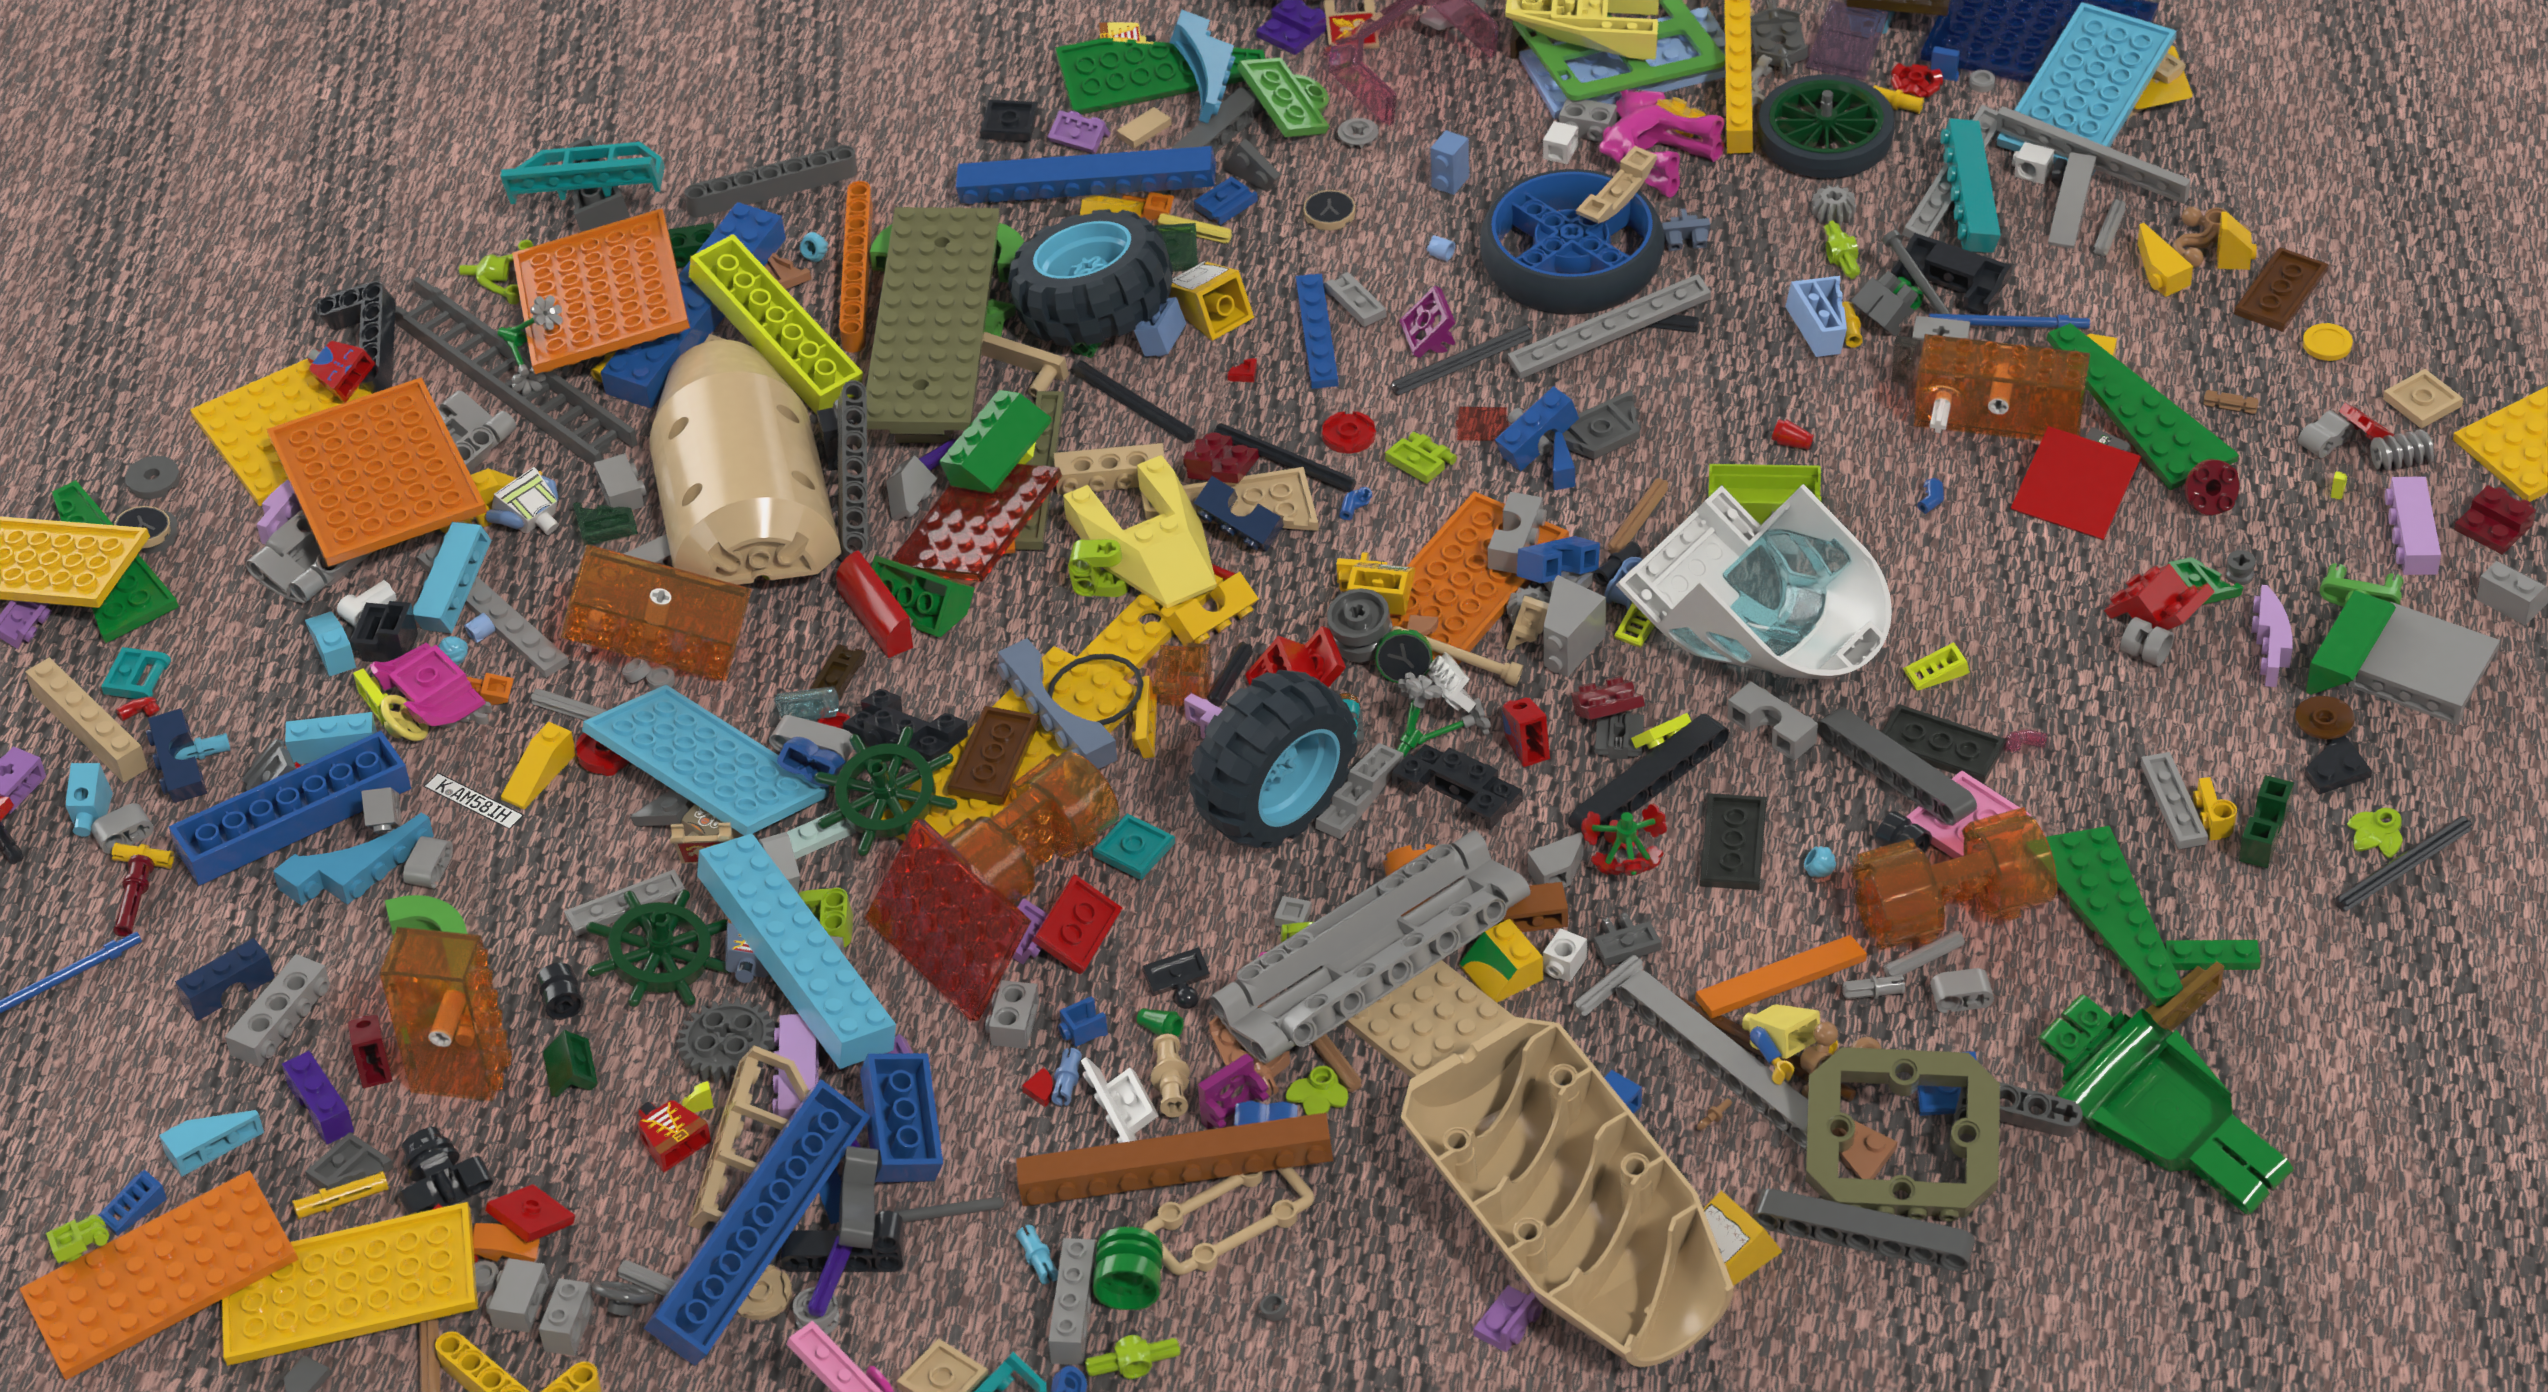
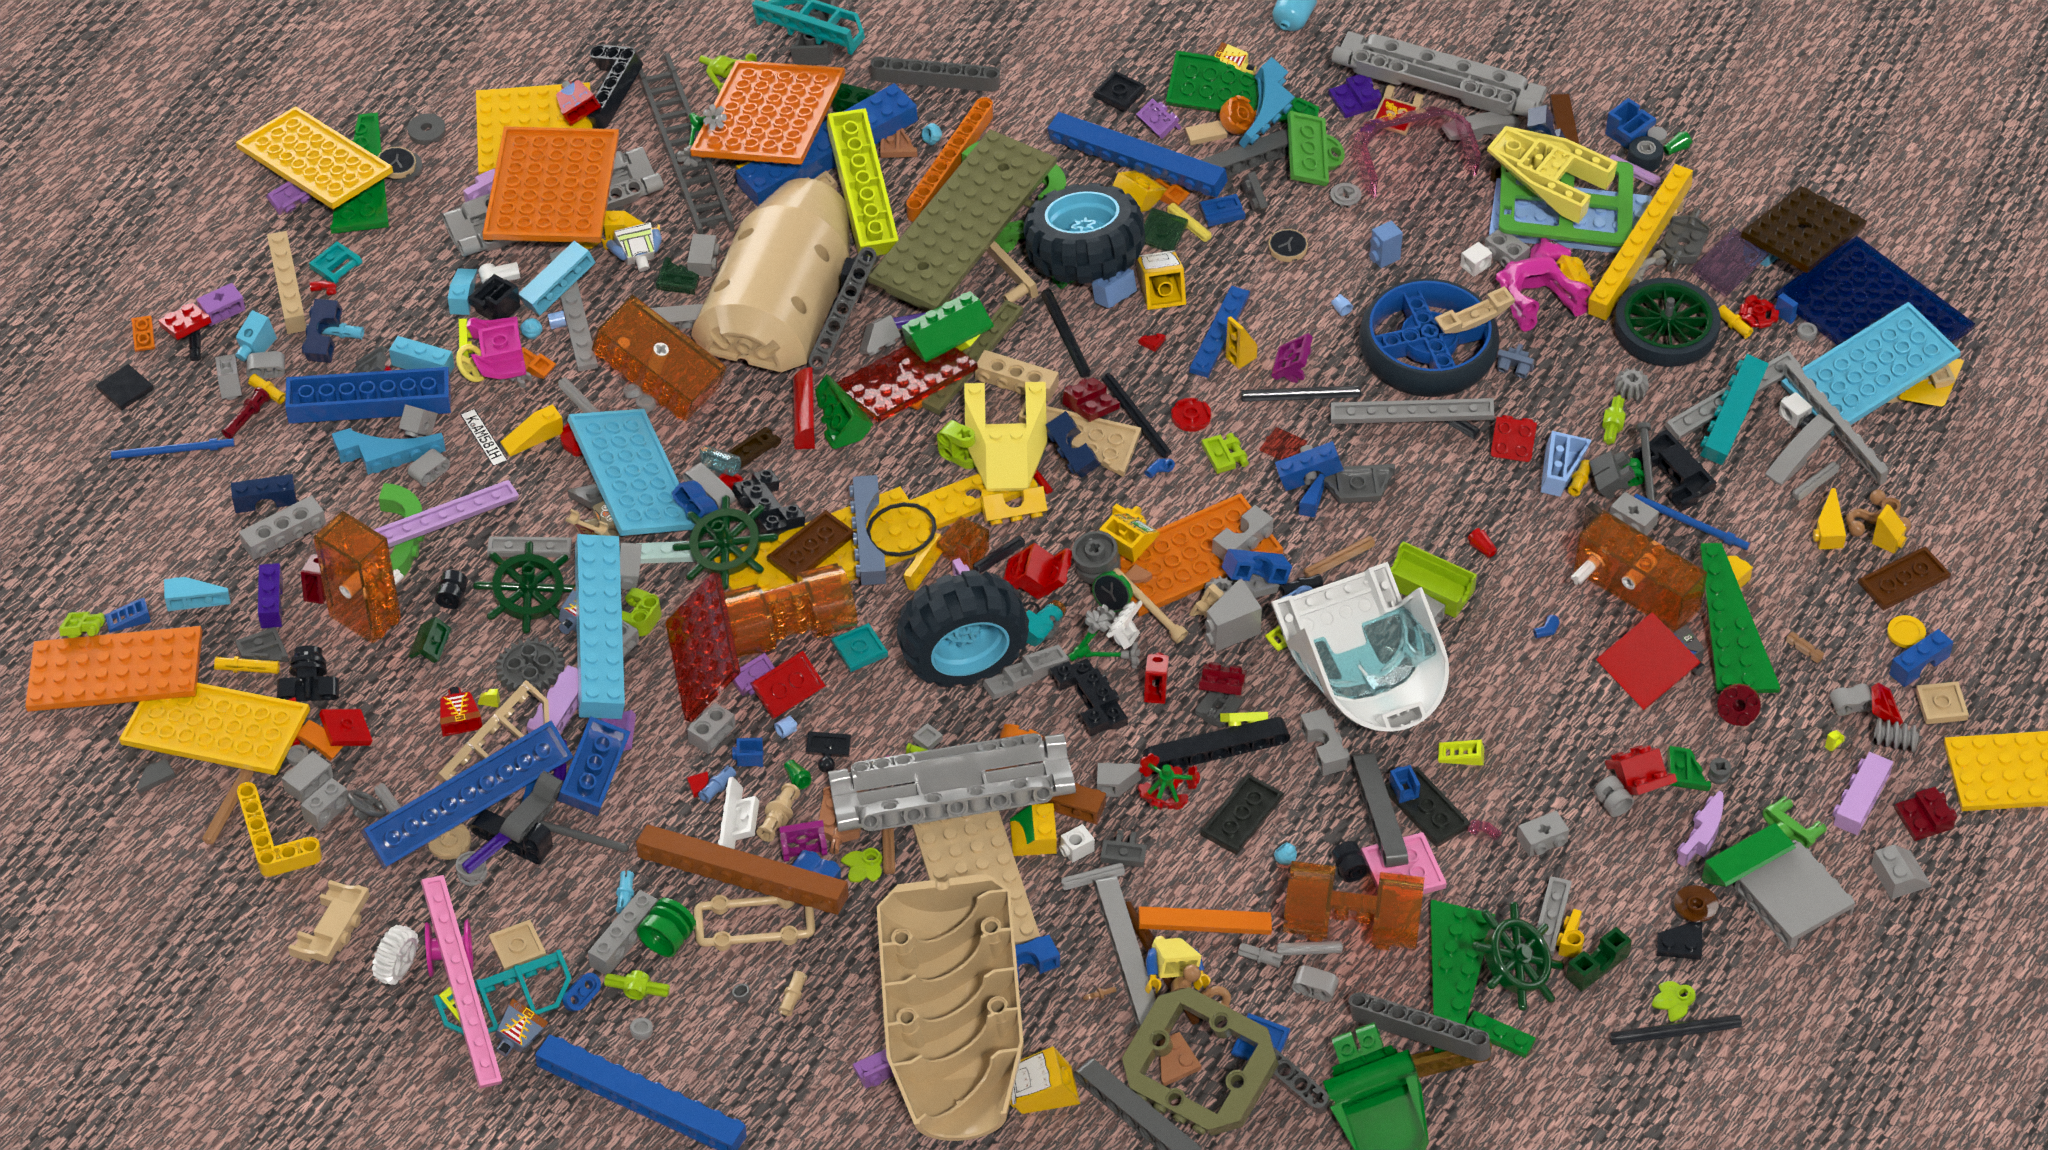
camera: 25 degrees right, 5 degrees up
(80, 861) = (228, 377): none -> light grey slope
(506, 892) = (448, 513): none -> lavender plate
(1106, 974) = (785, 726): none -> light blue hose
(1173, 93) = (1237, 115): none -> orange cylinder
(1338, 1279) = (792, 993): none -> tan pin
(1355, 299) = (1259, 319): light grey plate -> none
(1359, 329) = (1239, 344): none -> yellow slope
(1745, 311) = (1513, 438): none -> red bracket
(1904, 724) = (1401, 776): none -> blue window
(2098, 715) = (1542, 834): none -> light grey brick
(2129, 979) = (1420, 1026): none -> dark grey beam
(2180, 854) = (1517, 956): none -> dark green piece
(2365, 360) = (1931, 649): none -> blue arch

